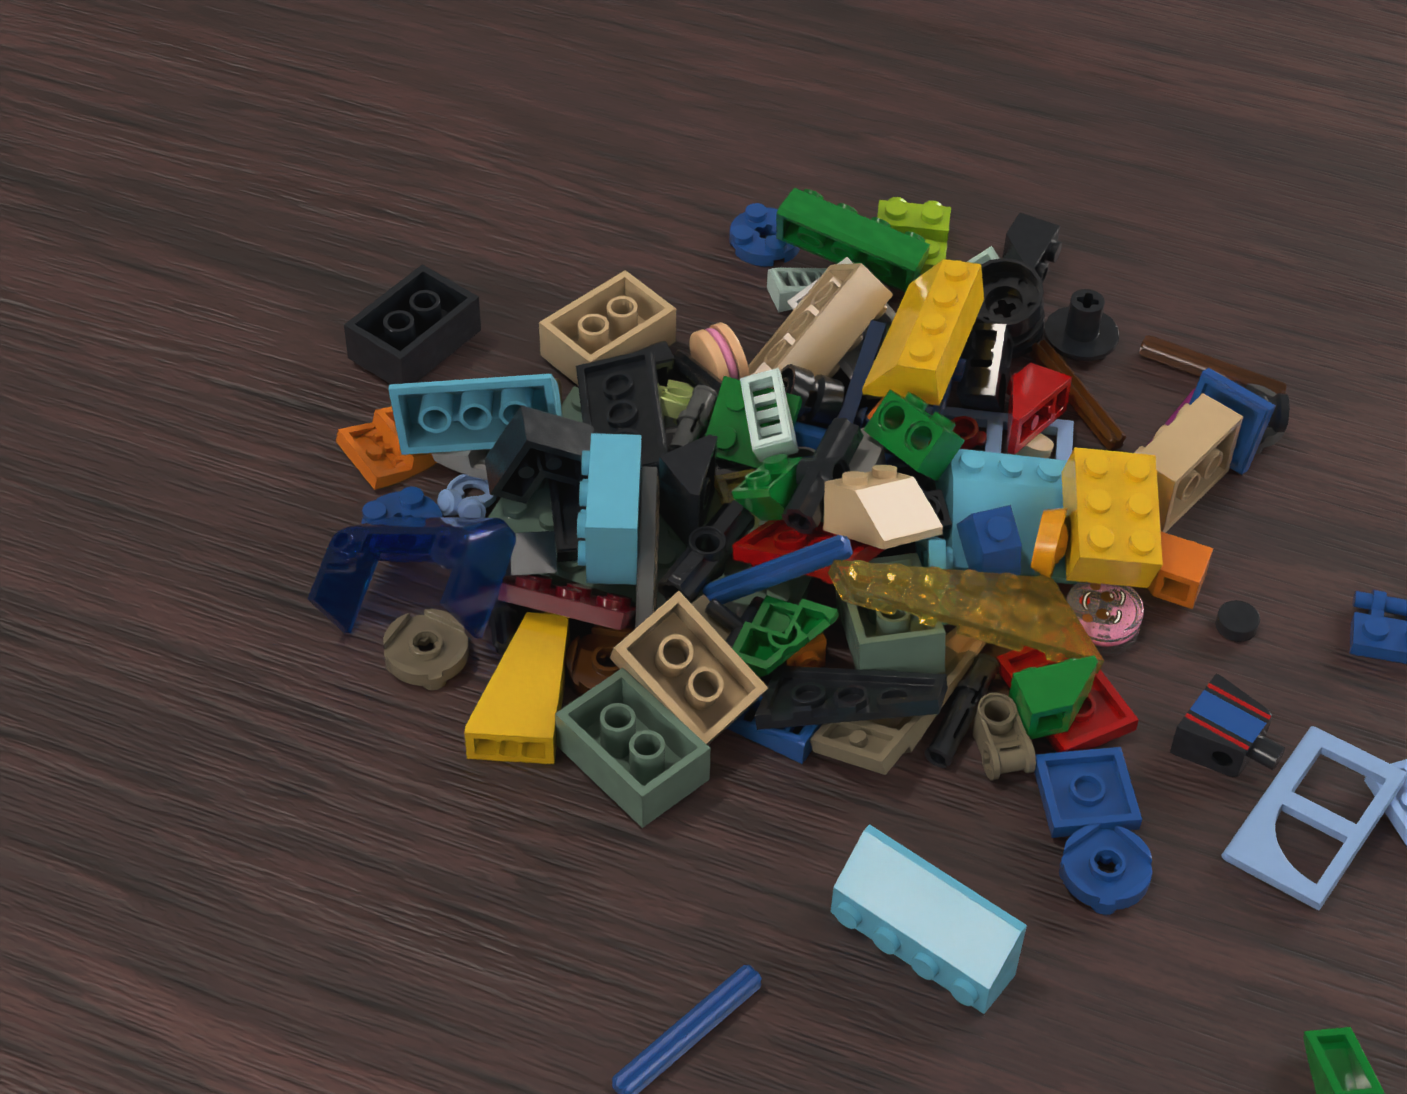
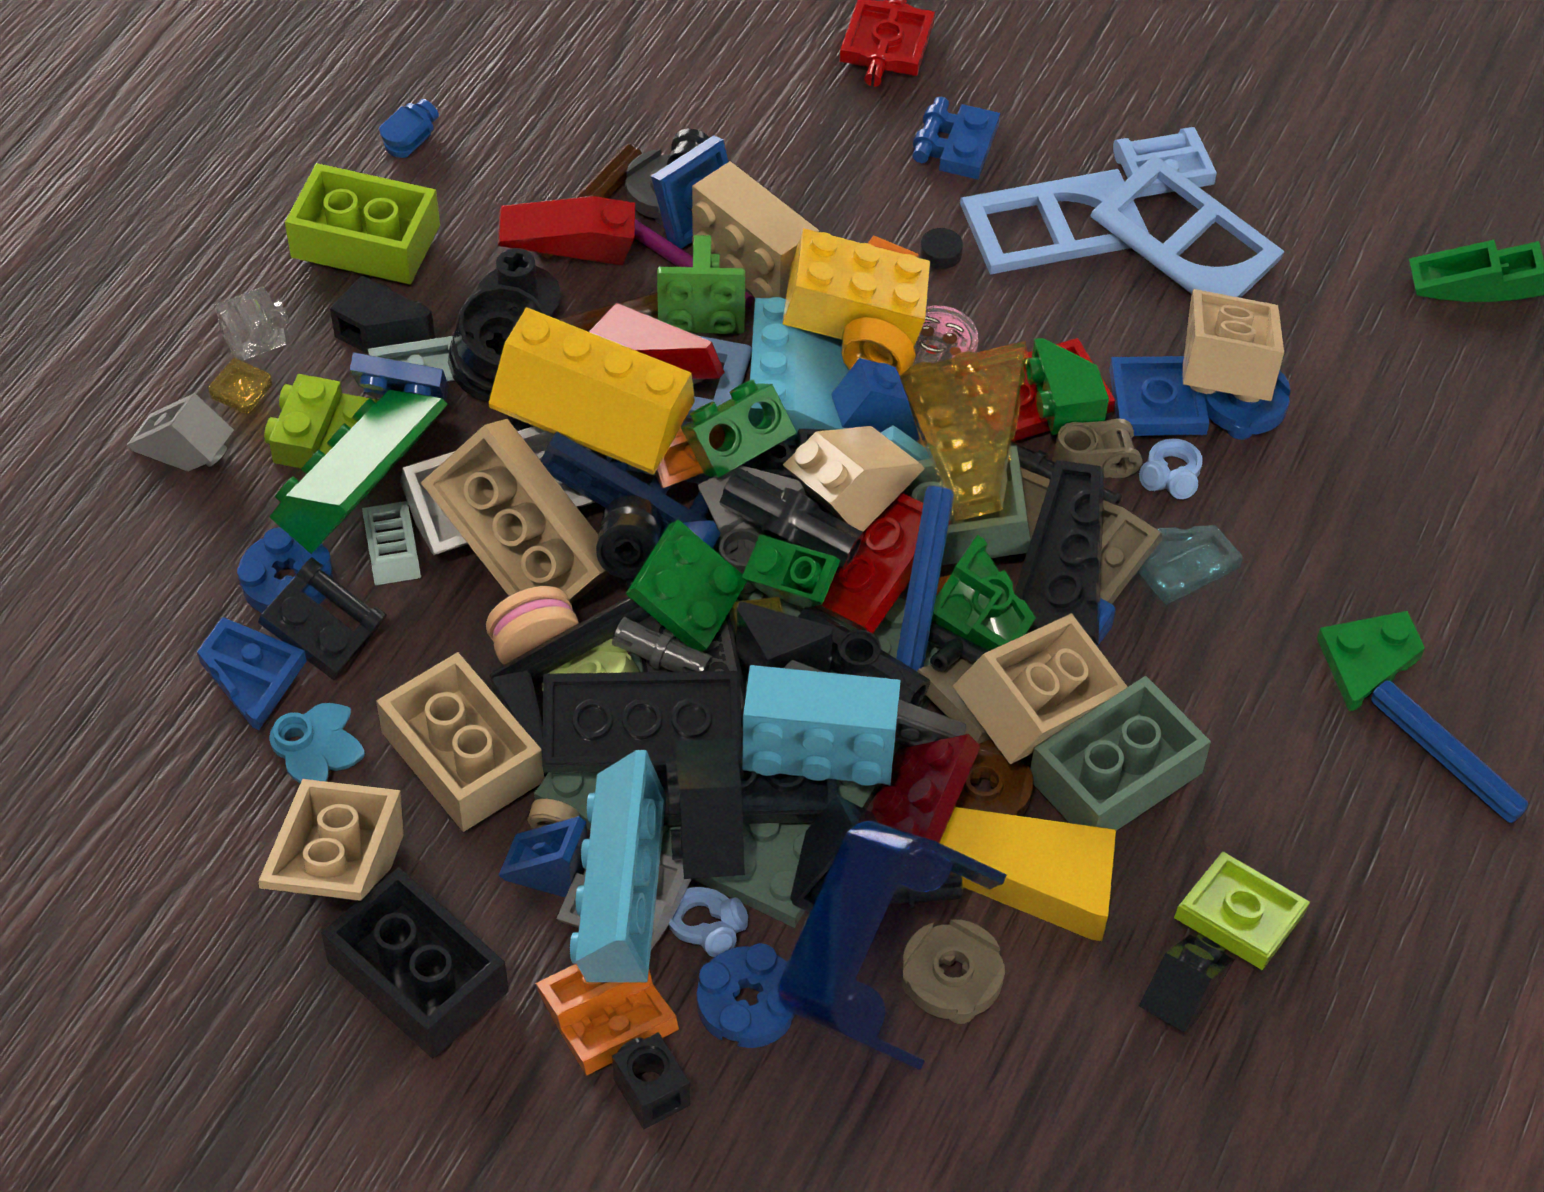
camera: 85 degrees left, 5 degrees up
(323, 467) = (654, 1099): none -> black brick
(416, 803) = (1186, 981): none -> black slope
(491, 848) = (1242, 910): none -> lime plate
(497, 265) = (335, 840): none -> tan slope
(610, 260) = (322, 742): none -> dark azure plate
(669, 226) = (250, 668): none -> blue wing
(708, 247) = (310, 627): none -> black plate
(775, 438) = (737, 541): light aqua slope -> none
(799, 970) = (1369, 653): none -> green wing
(879, 161) = (183, 434): none -> light grey slope
(883, 803) = (1188, 561): none -> clear light blue wing
(928, 920) = (1331, 532): medium azure slope -> none
(940, 186) = (240, 385): none -> clear yellow plate
(947, 238) = (382, 374): none -> blue plate
(981, 812) = (1179, 482): none -> light blue piece
(1003, 182) = (252, 323): none -> clear brick
(1108, 423) = (702, 295): none -> bright green bracket
(1124, 225) = (363, 223): none -> lime brick
(1152, 832) = (1232, 346): none -> tan slope
(1158, 349) = (572, 227): none -> red slope
(1226, 731) = (1085, 278): black torso -> none
(1255, 247) = (408, 128): none -> blue arm
(1338, 701) = (1085, 189): none -> light blue window

